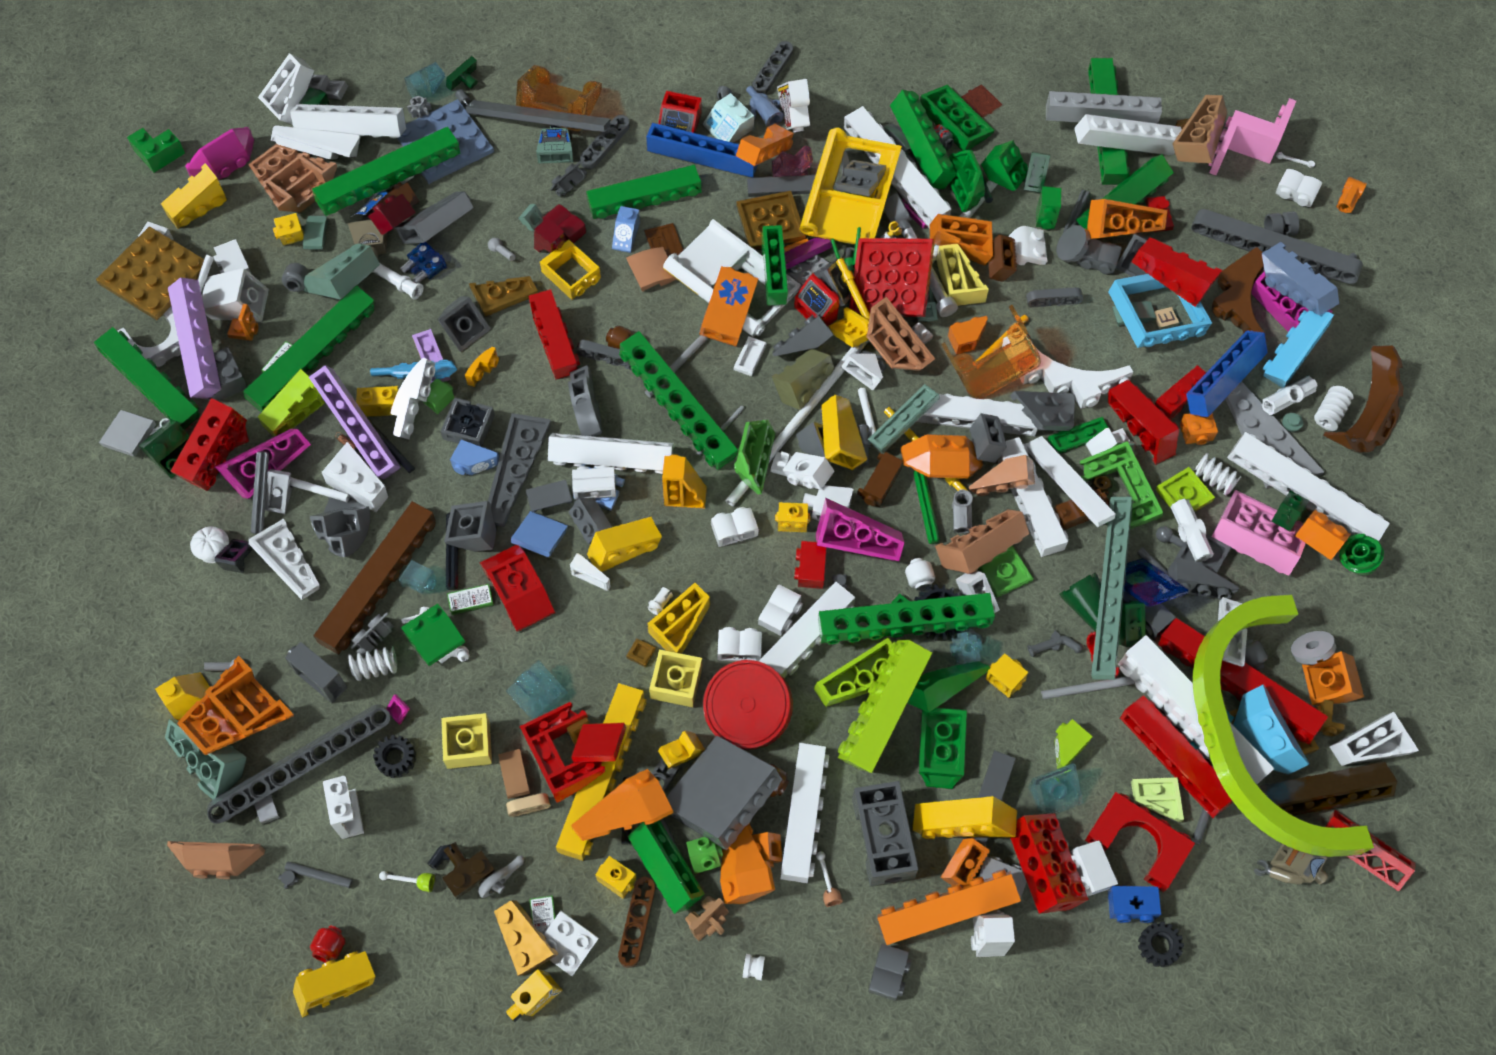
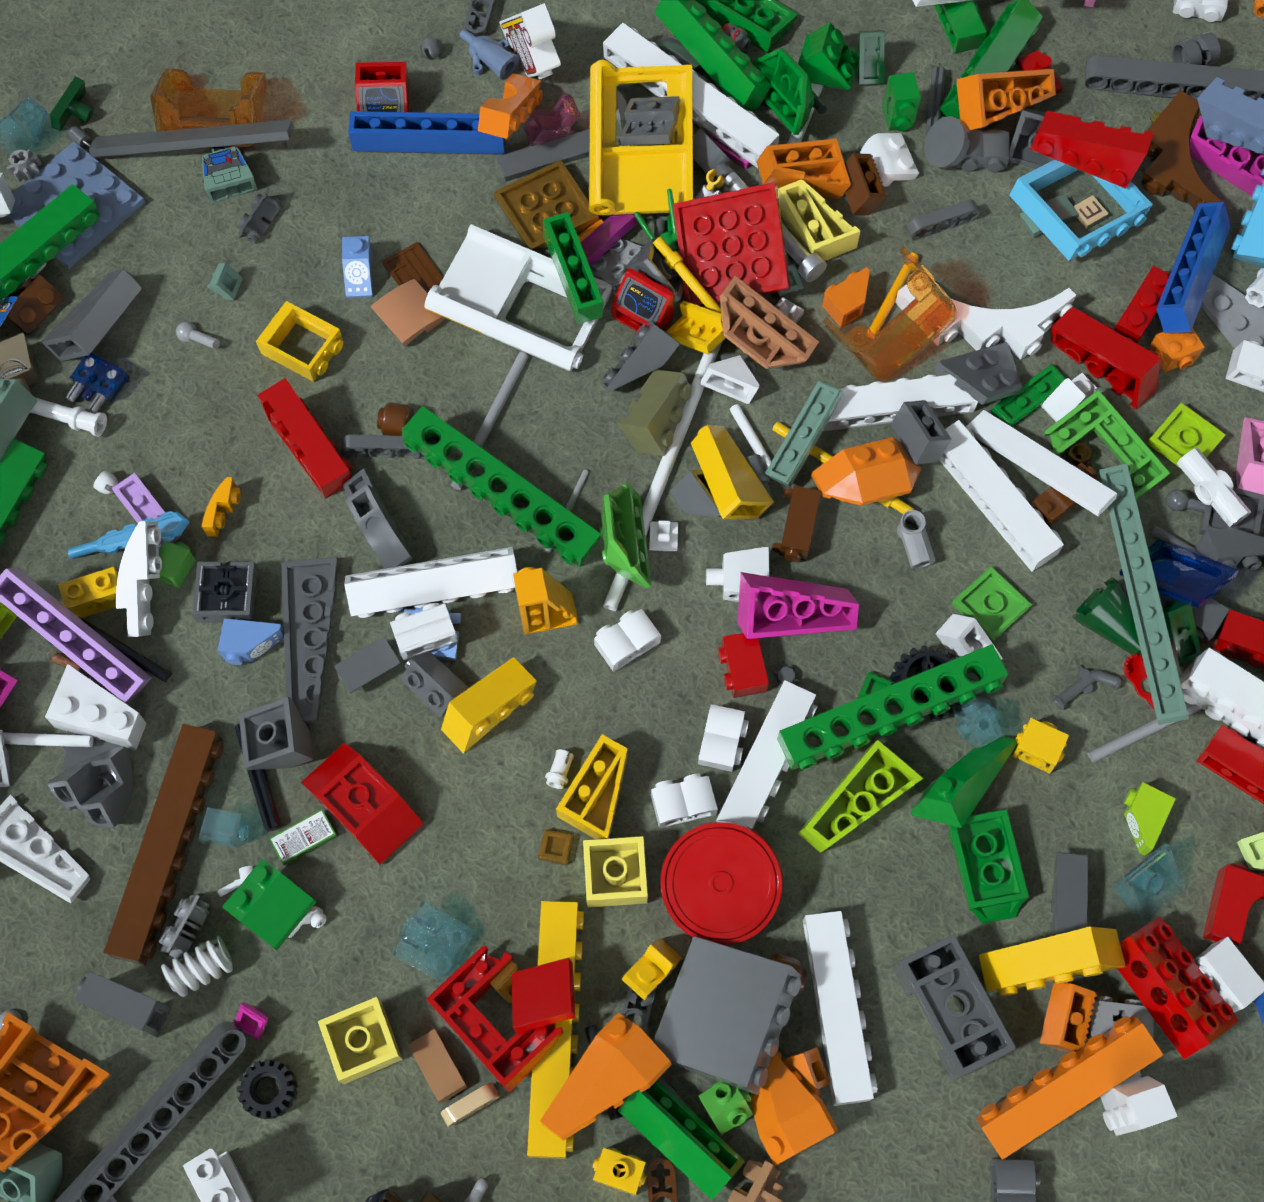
camera: 15 degrees left, 5 degrees up
(391, 214) = (32, 325): dark red brick -> none
(410, 327) = (104, 479): none -> white hinge
(463, 322) = (176, 452): dark grey slope -> none
(501, 295) = (215, 401): pearl gold wing -> none
(539, 534) = (370, 721): medium blue tile -> none
(548, 236) = (258, 304): dark red arch -> none
(569, 223) = (272, 281): dark red brick -> none
(586, 571) = (449, 755): white slope -> none
(601, 140) = (289, 152): dark grey beam -> none
(644, 191) = (366, 209): green brick -> none
(728, 306) = (529, 338): orange panel -> none
(729, 119) = (450, 82): light aqua slope -> none
(750, 356) = (575, 399): white tile -> none
(792, 517) = (699, 606): yellow head -> none
(808, 470) = (702, 538): white brick -> none
(832, 895) = (908, 1109): hinge -> none
(884, 705) = (903, 836): lime brick -> none
(920, 574) = (888, 639): white head -> none
(926, 508) = (867, 546): green axle -> none
(983, 542) = (957, 575): nougat wedge -> none
(1008, 474) = (965, 473): nougat slope -> none
(1216, 474) = (1218, 402): white piece -> none

